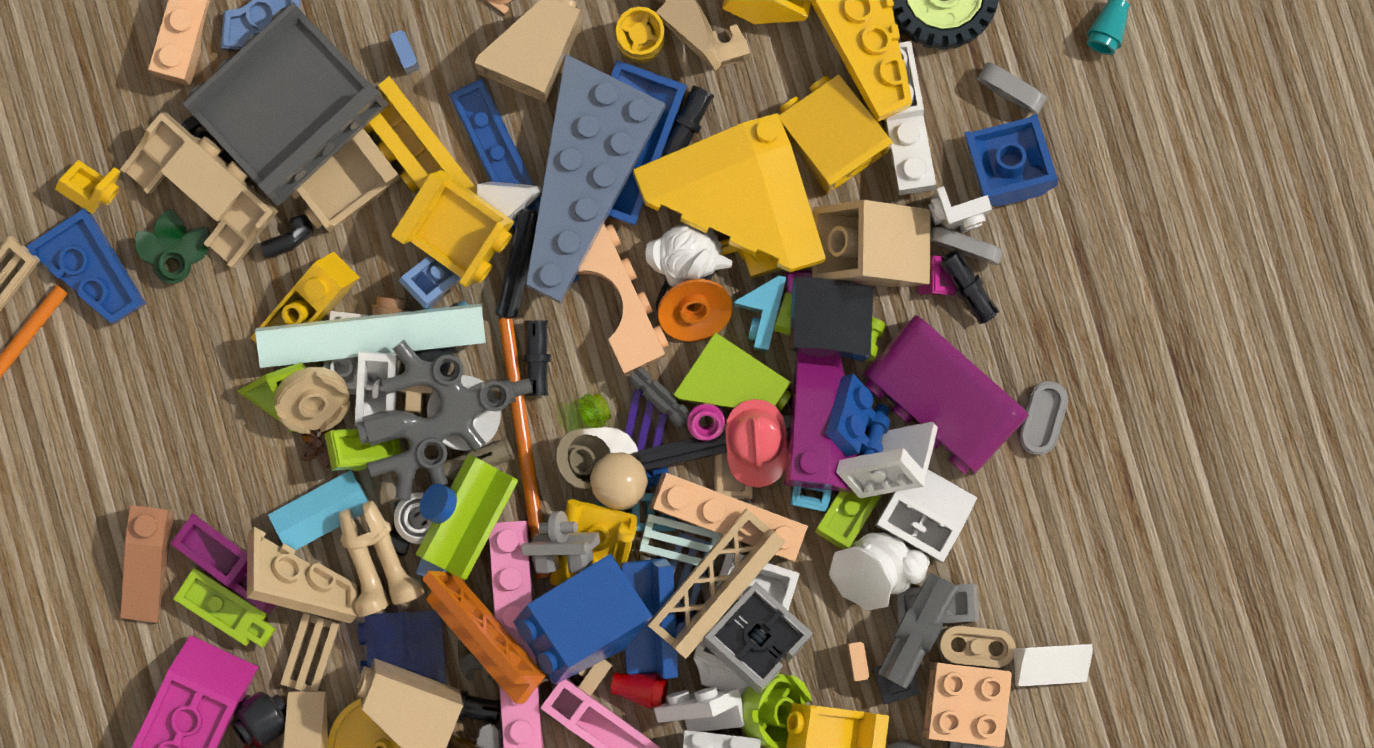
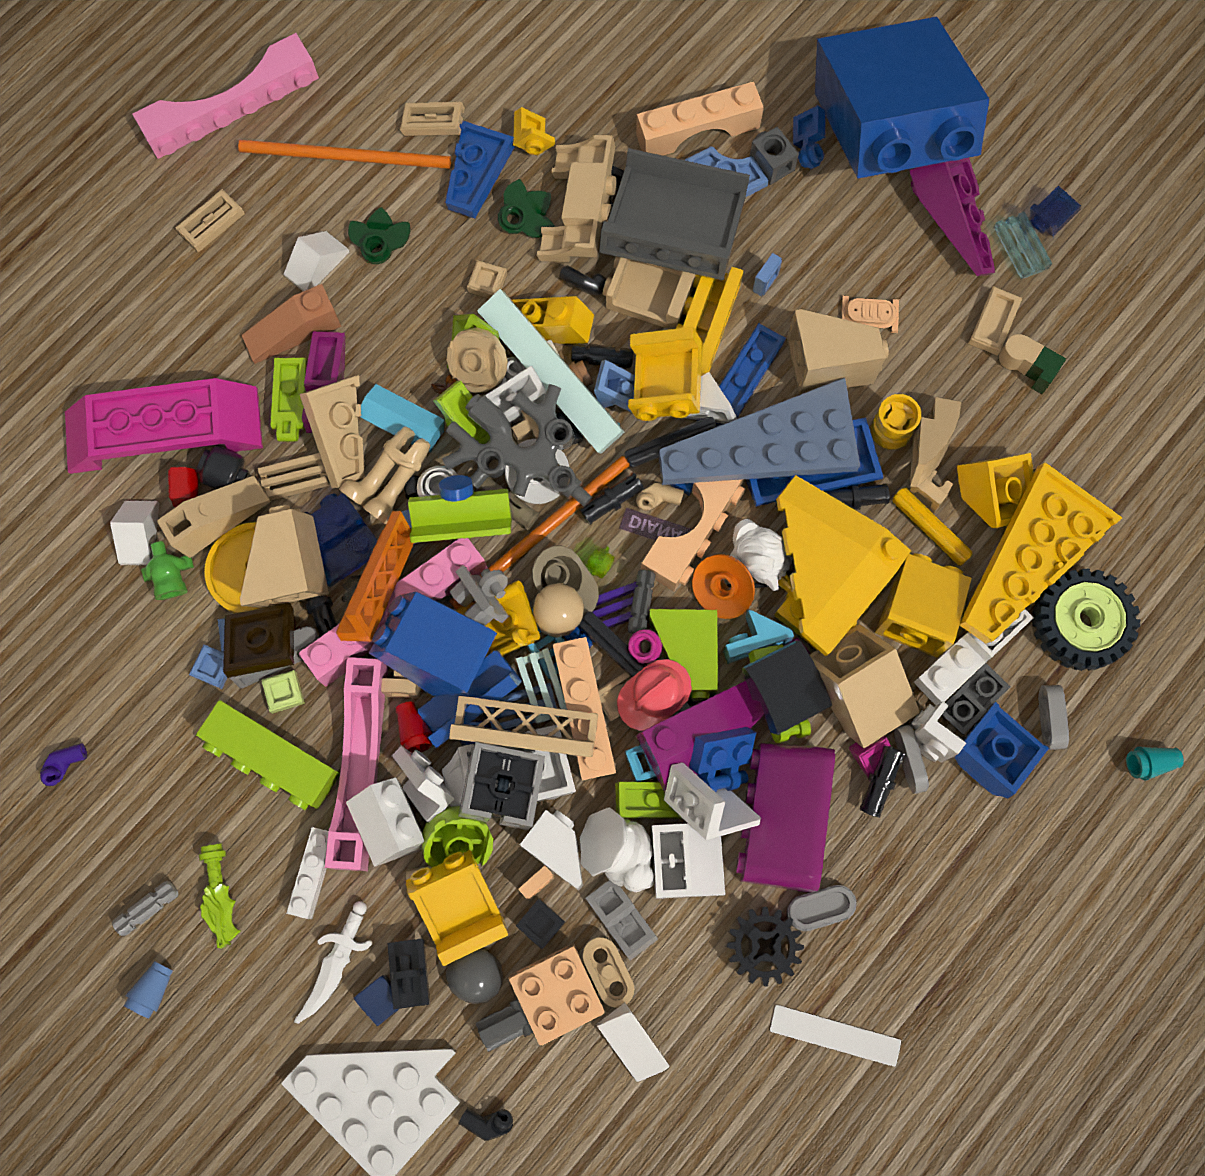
camera: 60 degrees right, 10 degrees down
(85, 494) = (314, 259): none -> white slope
(96, 409) = (378, 233): none -> dark green plate
(222, 333) = (486, 279): none -> tan tile
(380, 271) = (596, 354): none -> black axle
(560, 314) = (657, 494): none -> tan arm
(589, 335) = (650, 526): none -> sticker
(762, 69) = (932, 526): none -> yellow axle
(840, 623) = (556, 846): none -> white slope
(918, 630) = (589, 914): dark grey piece -> none
(948, 147) = (974, 698): none -> dark grey slope
(1046, 510) = (776, 958): none -> black gear
(1158, 480) = (835, 1035): none -> white sticker

